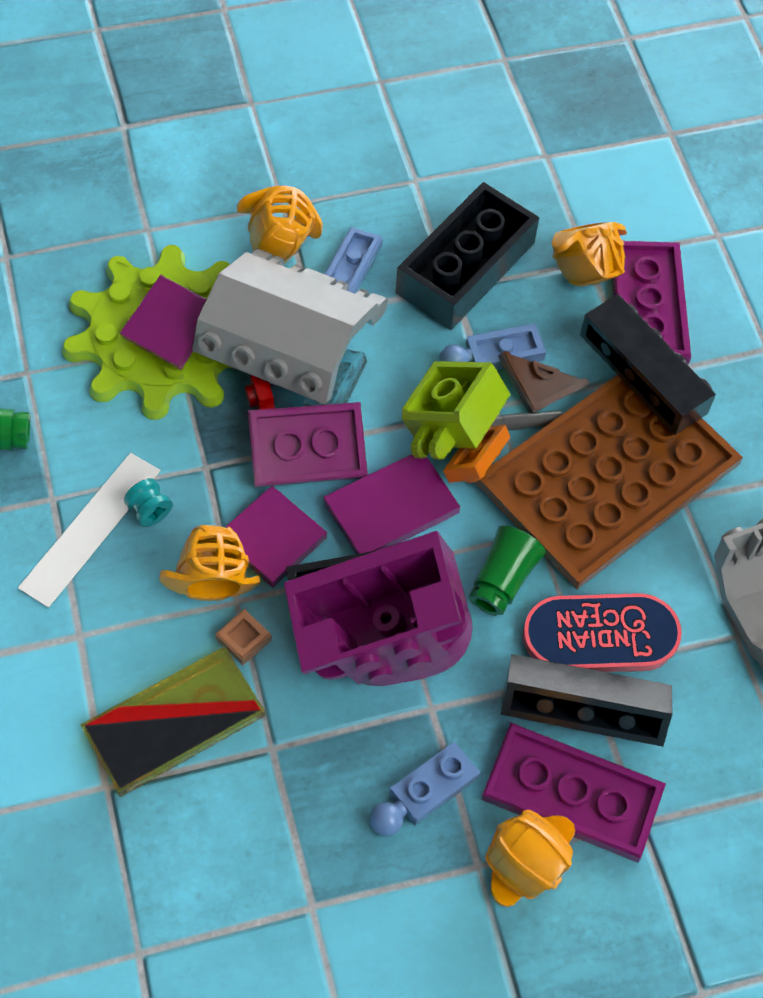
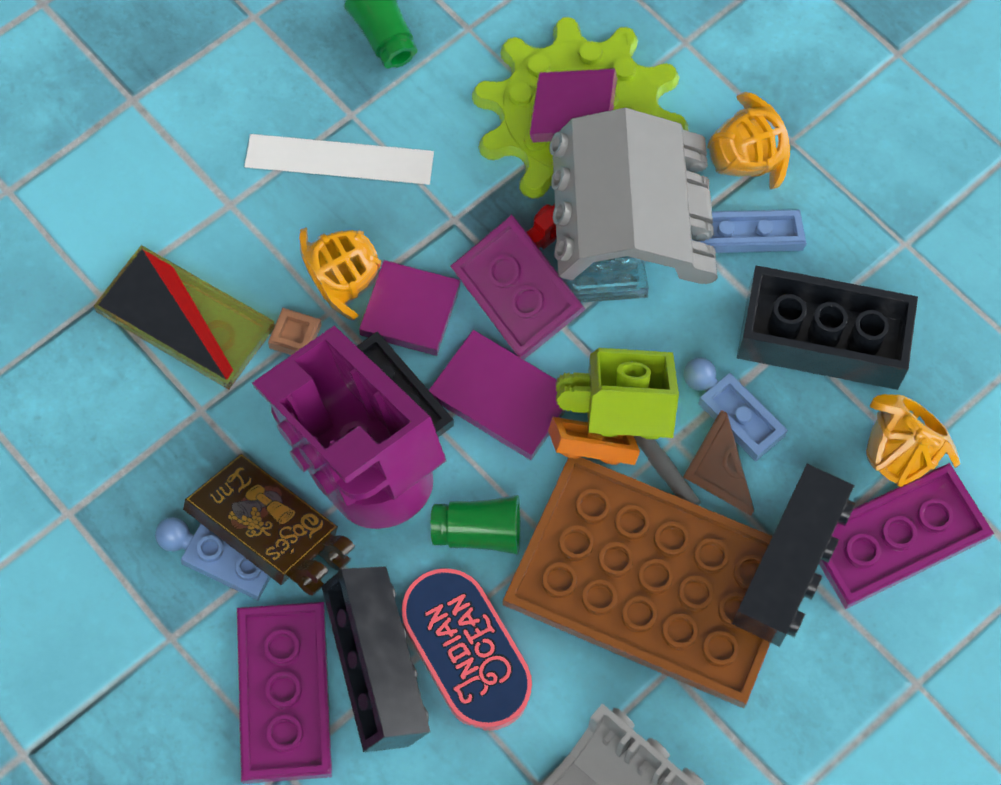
camera: 65 degrees right, 5 degrees up
(148, 502) = (382, 187): teal wheel -> none
(422, 732) = (269, 525): none -> dark brown tile
(529, 856) = (192, 673): light orange piece -> none

